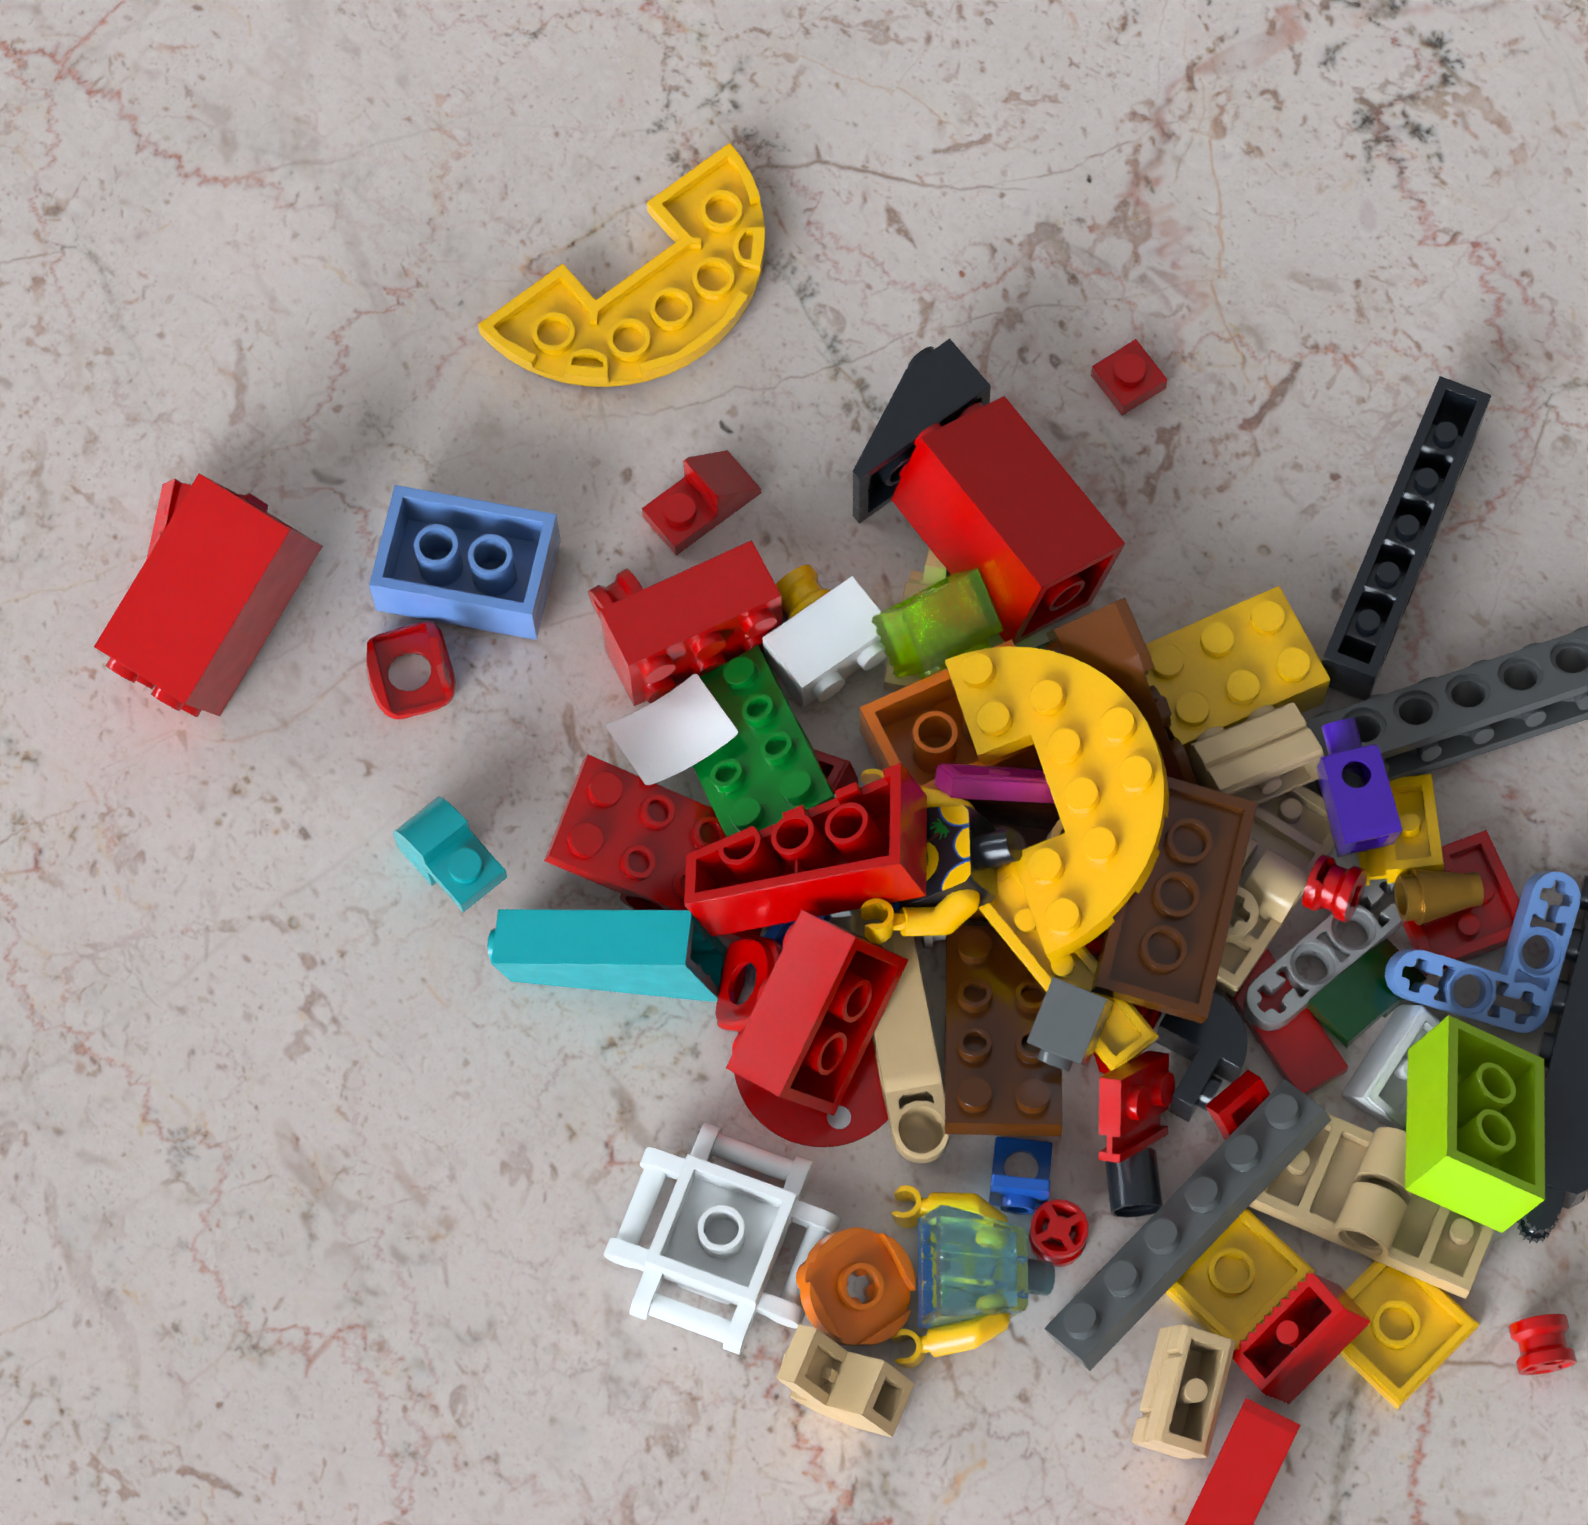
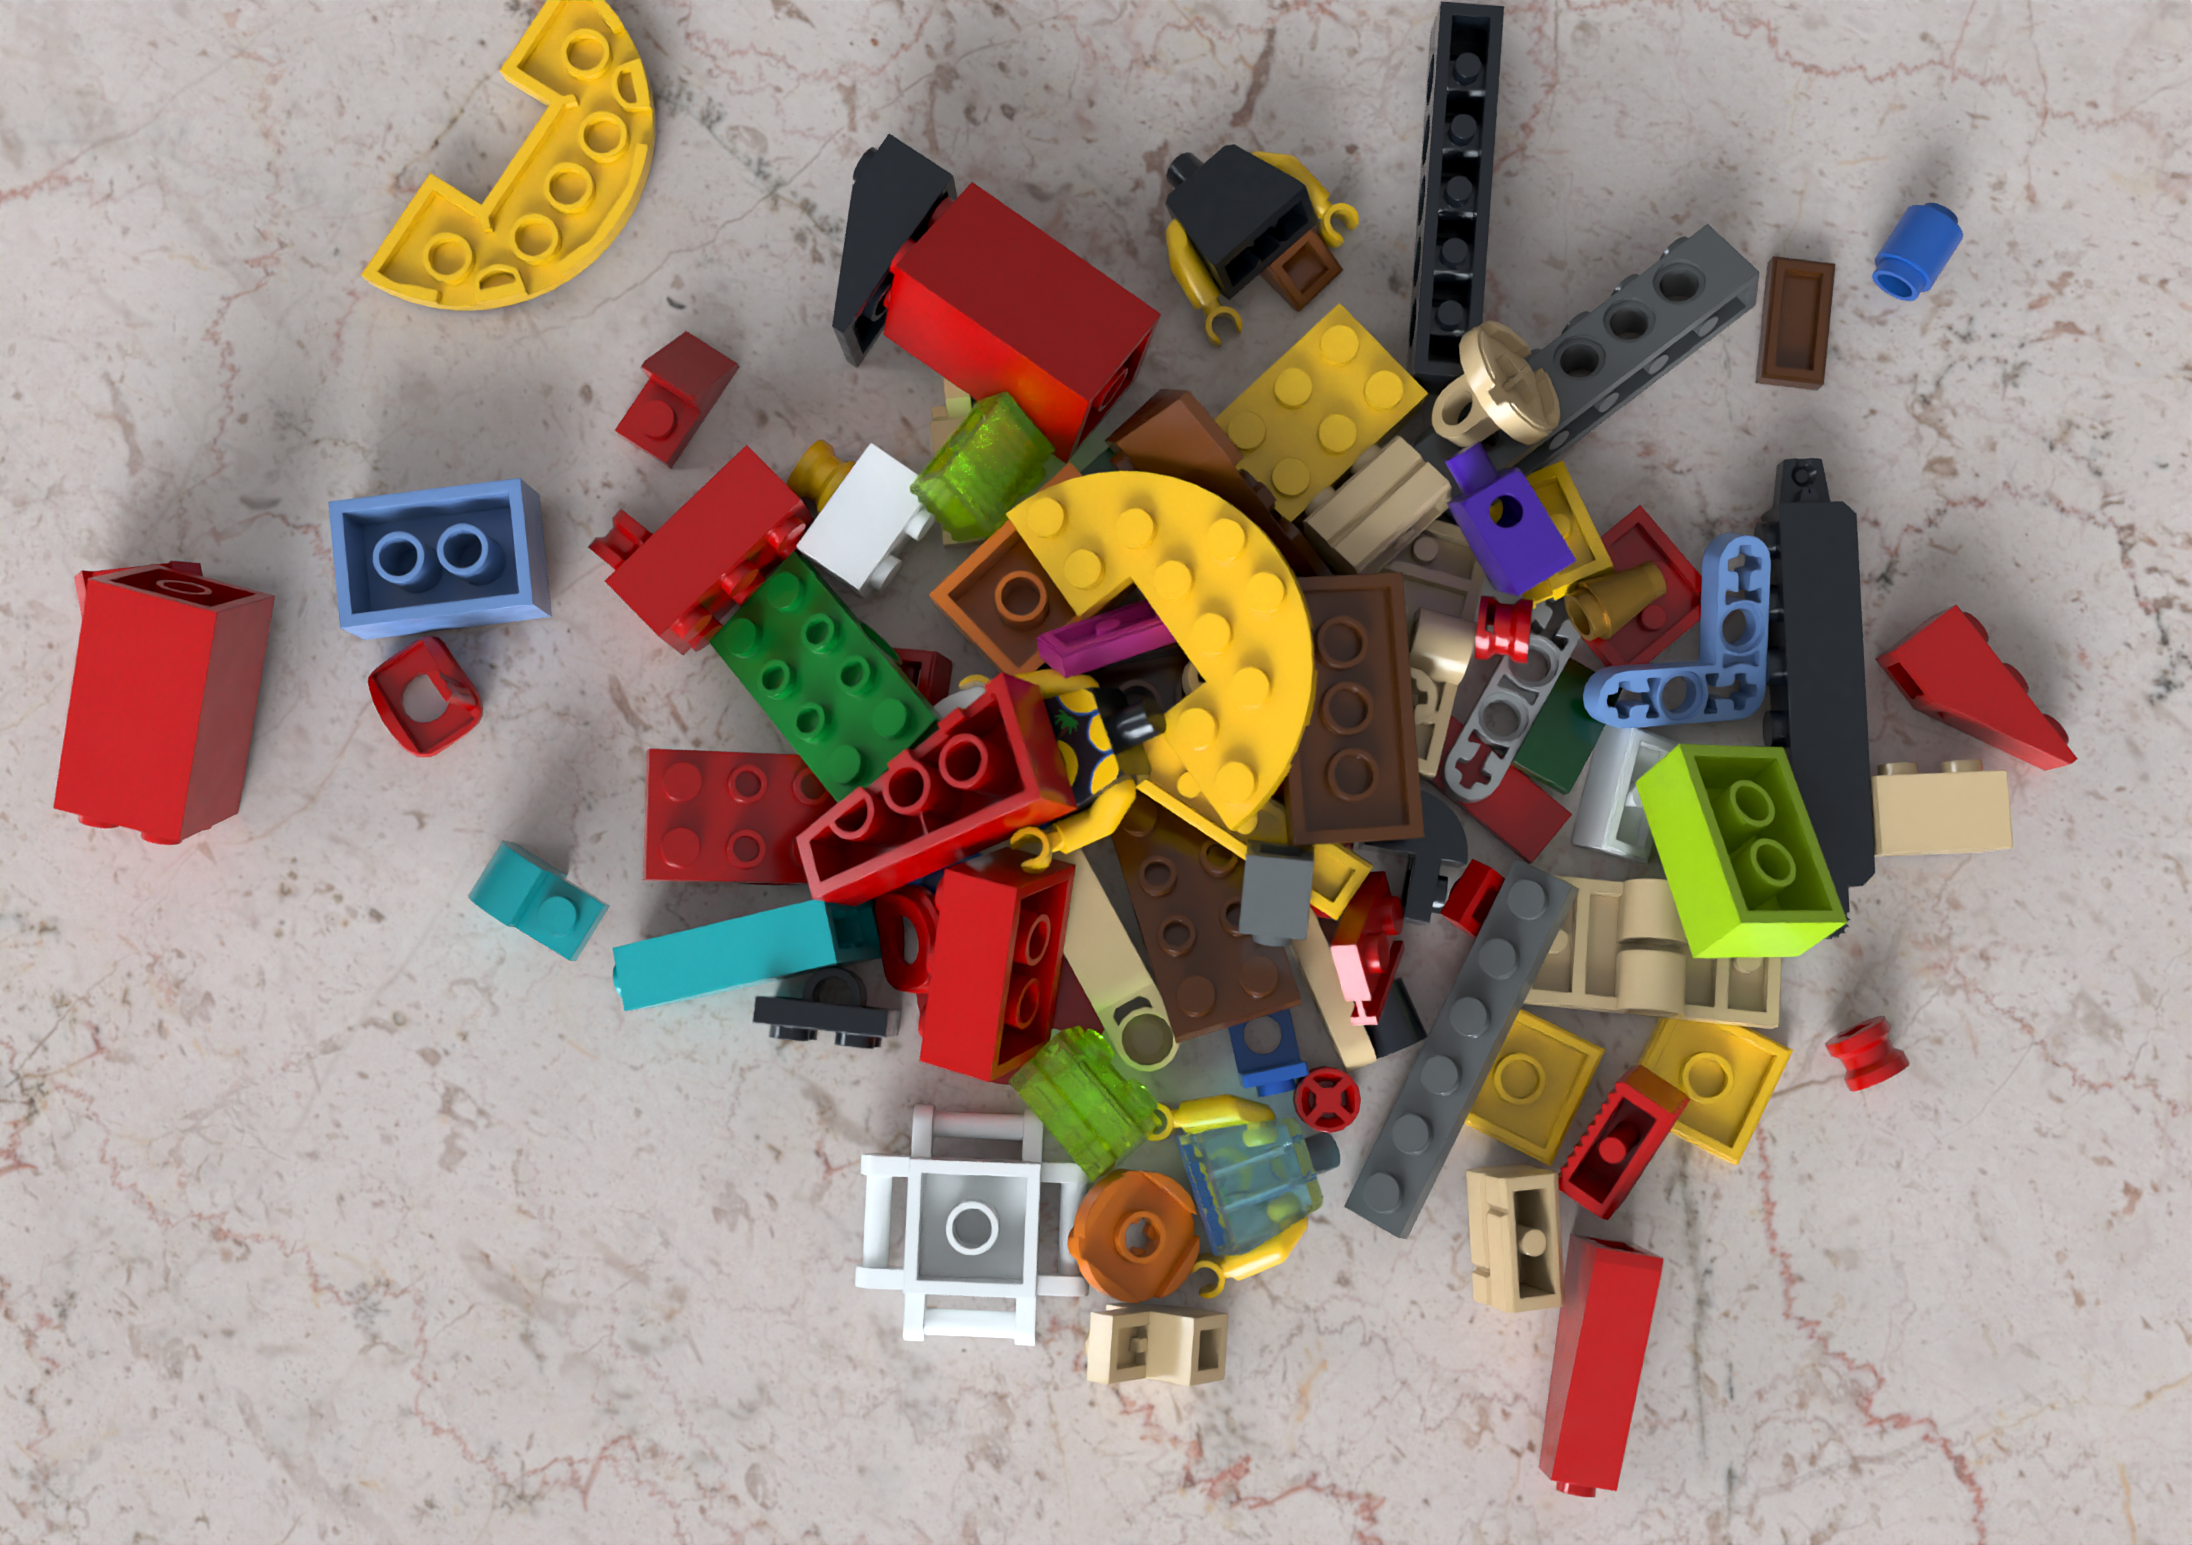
camera: 15 degrees left, 15 degrees up
(661, 1018) = (801, 1019): none -> black plate
(673, 731) = (734, 685): white sticker -> none
(852, 1161) = (1087, 1100): none -> clear neon green brick
(1091, 1173) = (1323, 983): none -> tan beam
(1129, 377) = (1095, 105): red plate -> none
(1218, 497) = (1238, 219): none -> black torso
(1257, 552) = (1302, 271): none -> dark orange slope
(1386, 687) = (1502, 391): none -> tan tile

